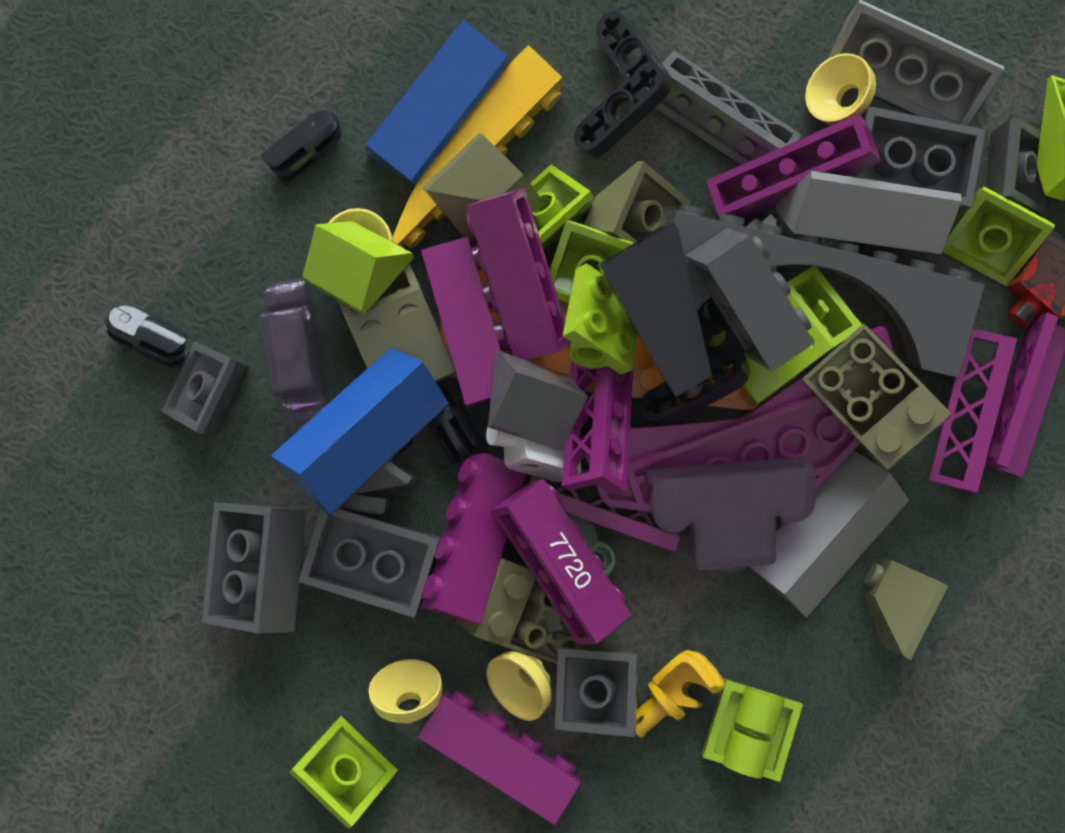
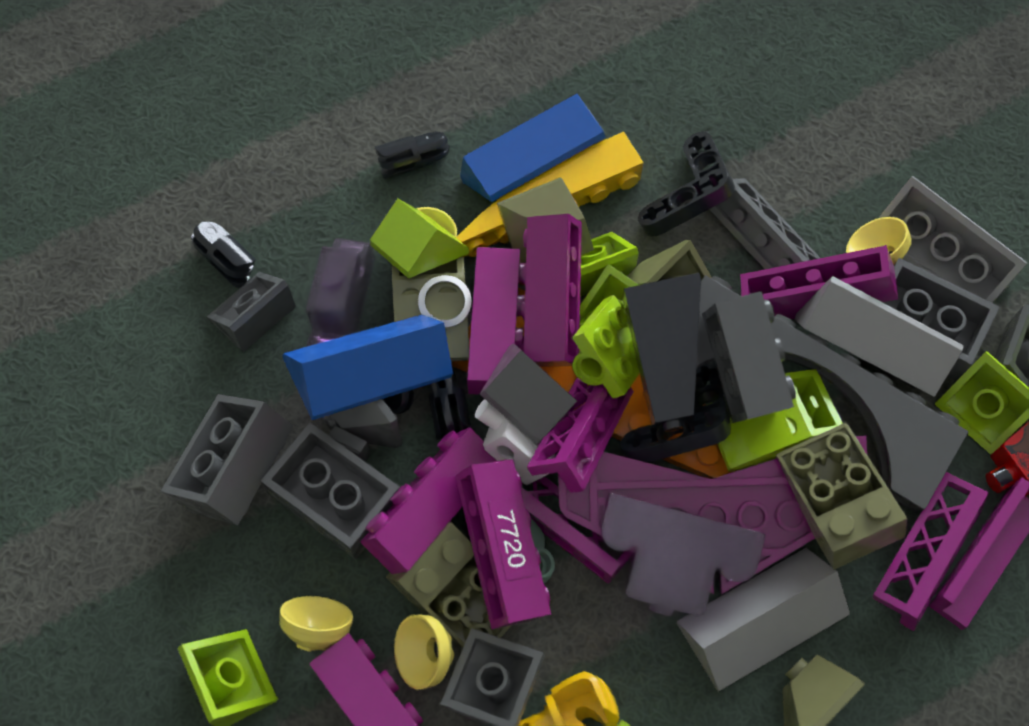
camera: 20 degrees right, 20 degrees down
(413, 298) = (445, 278): none -> white piece

